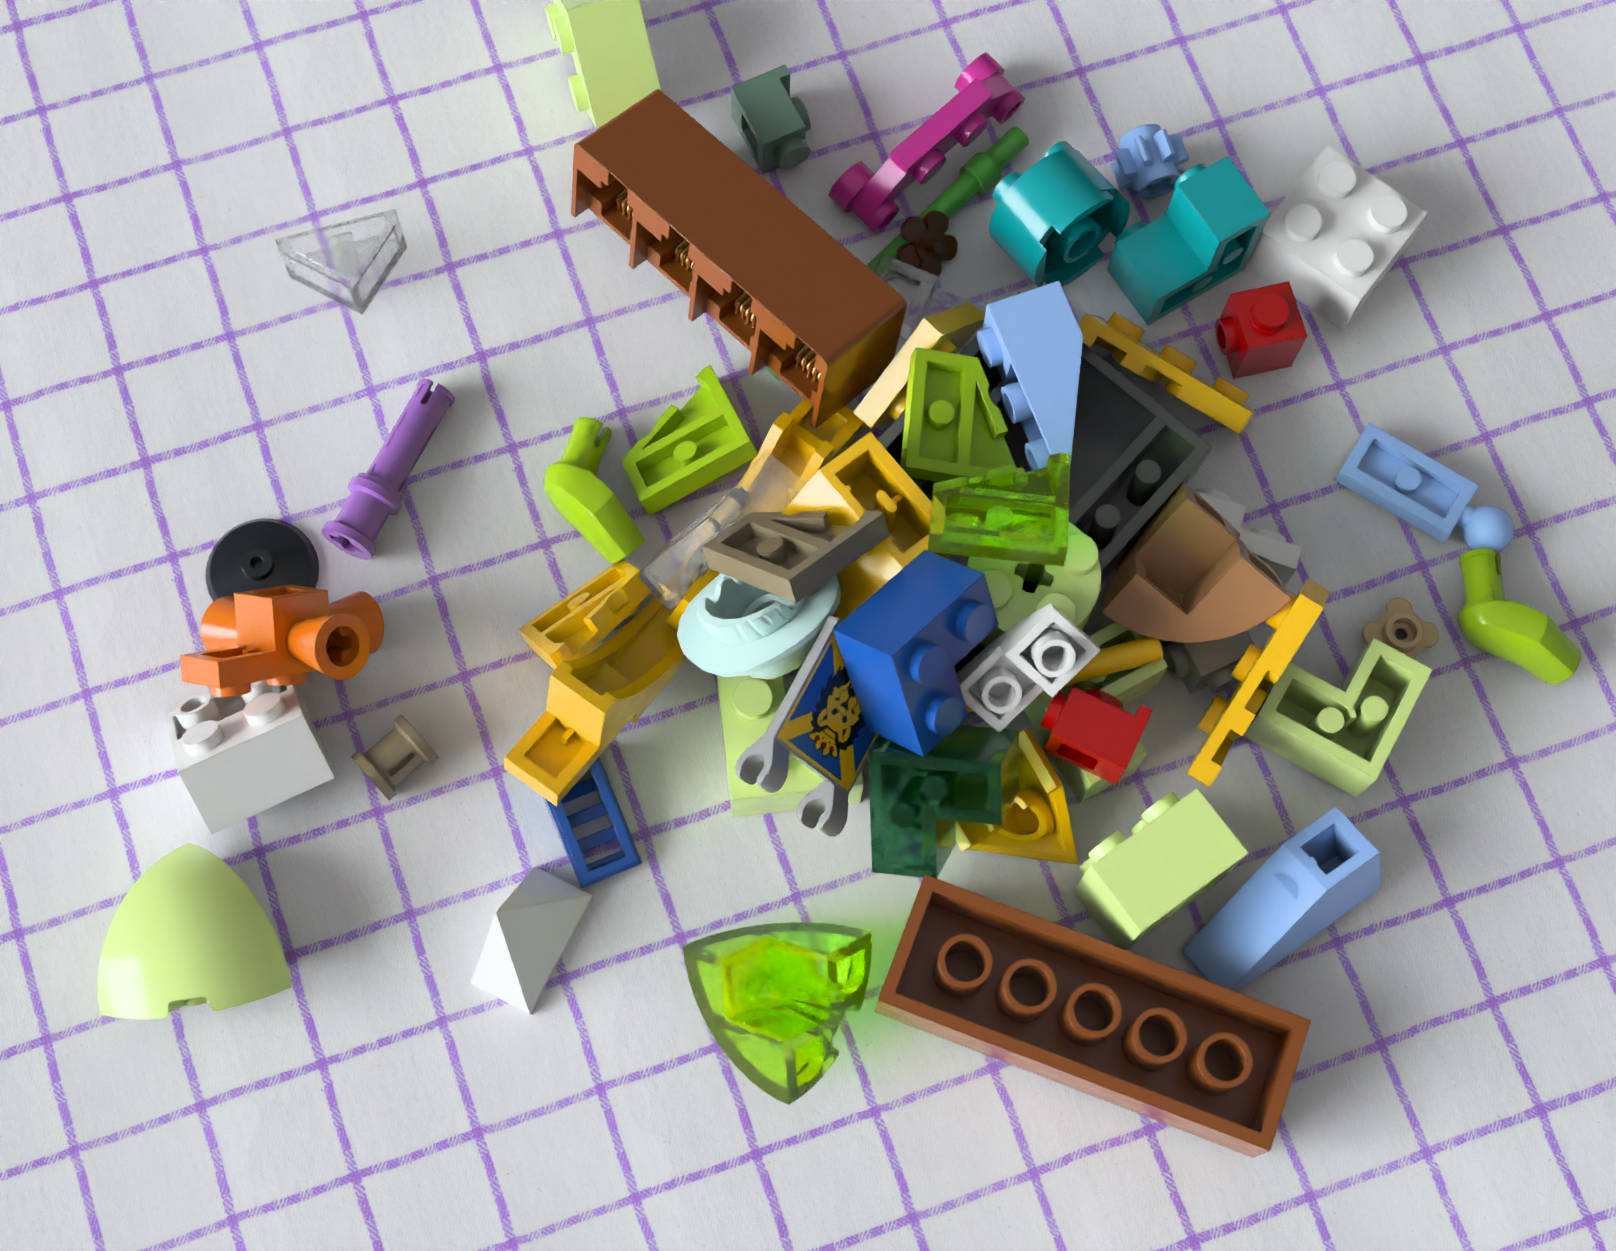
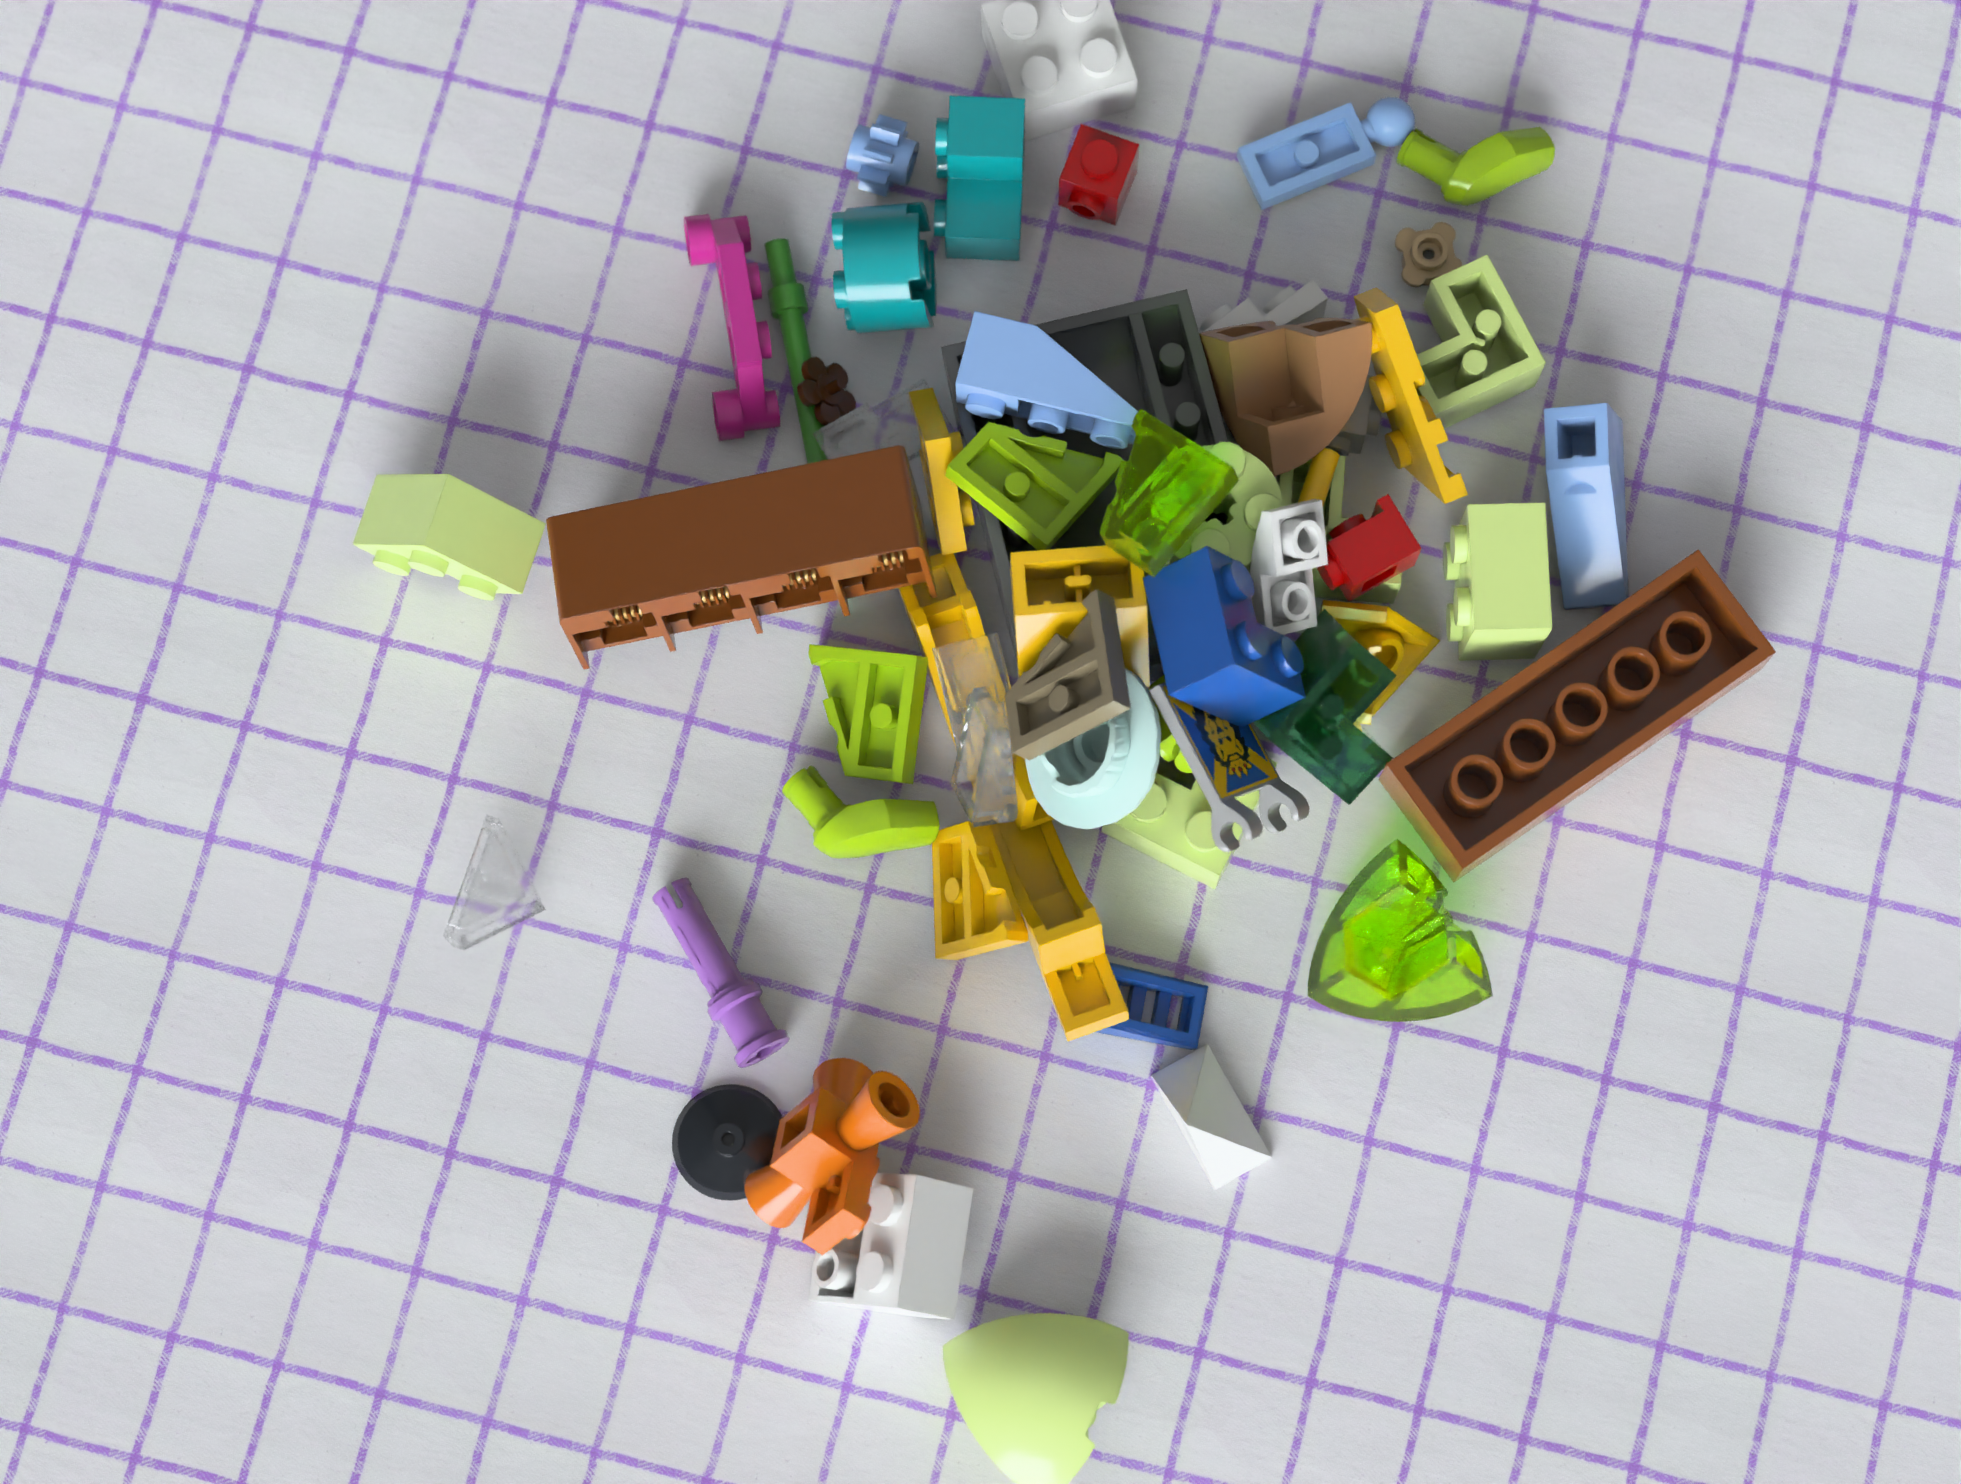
camera: 50 degrees left, 5 degrees up
(395, 757) = (983, 1129): dark tan bush -> none
(771, 120) = (619, 441): sand green brick -> none
(1170, 367) = (1063, 288): yellow wing -> none

